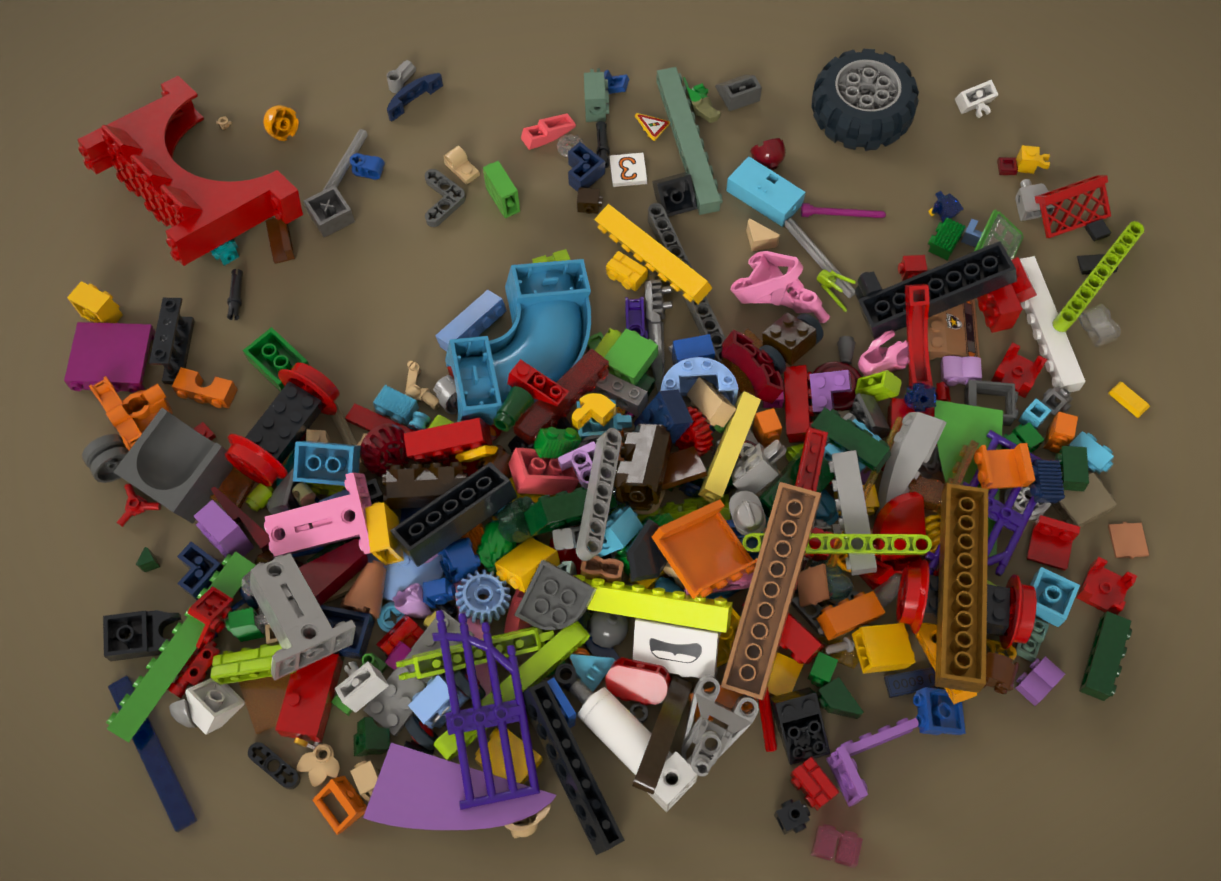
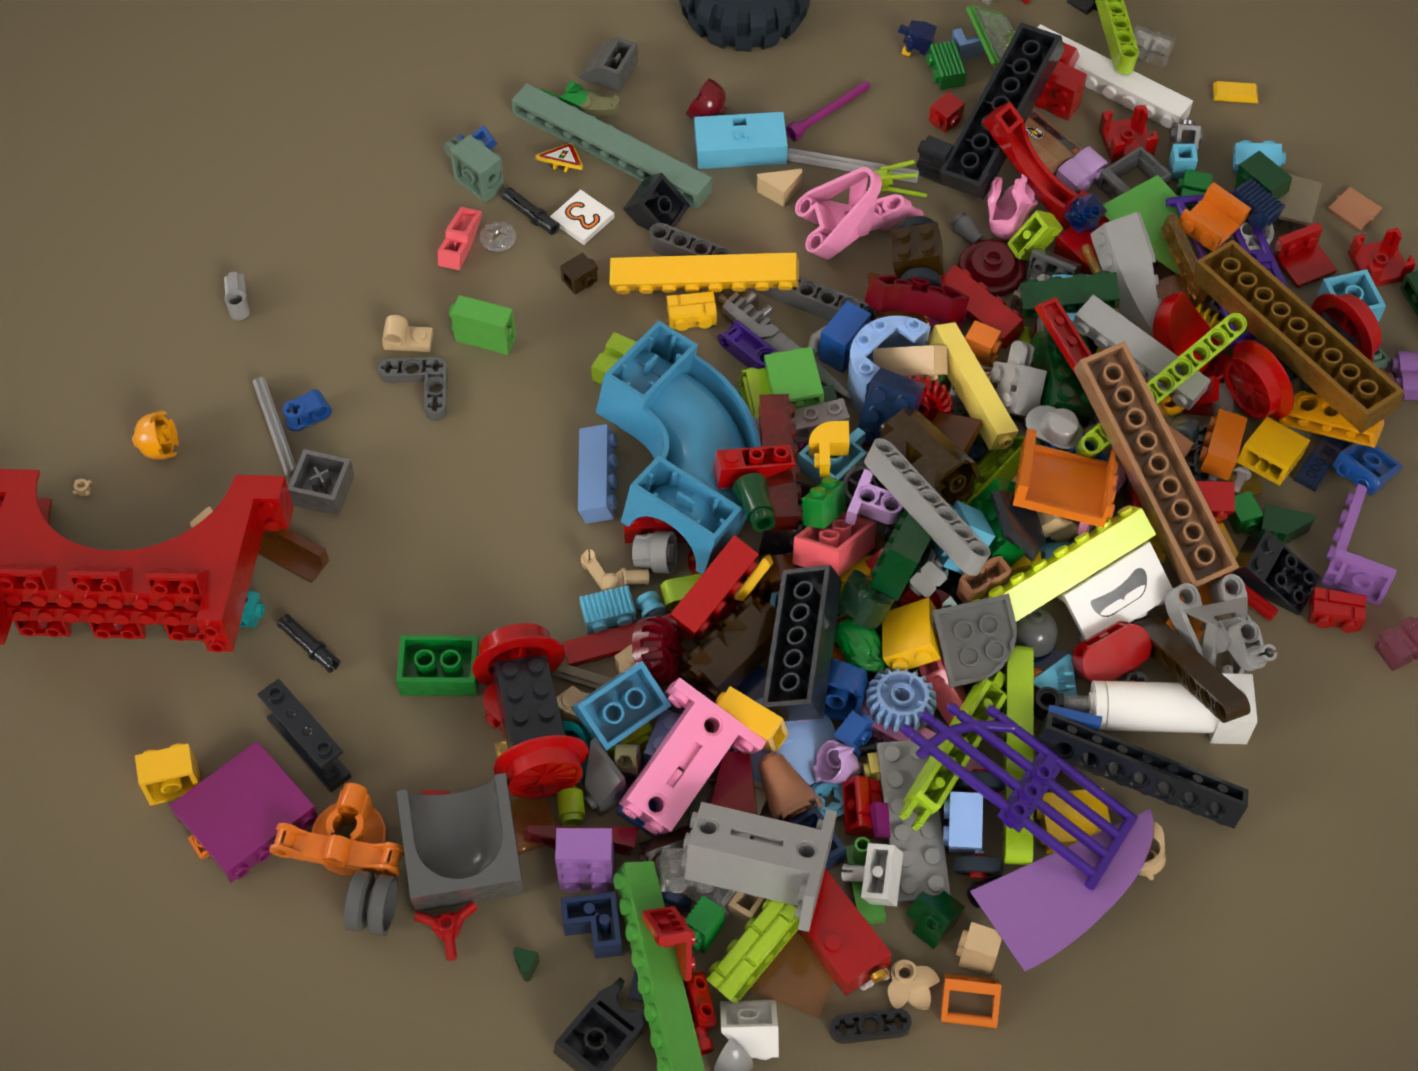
camera: 45 degrees left, 5 degrees down
(218, 394) = (370, 769): orange arch -> none
(411, 91) = (276, 283): dark blue slope -> none
(585, 165) = (542, 240): dark blue brick -> none
(785, 819) = (1351, 650): black brick -> none
(825, 384) = (993, 272): medium lavender brick -> none
(1060, 431) = (1219, 157): orange piece -> none

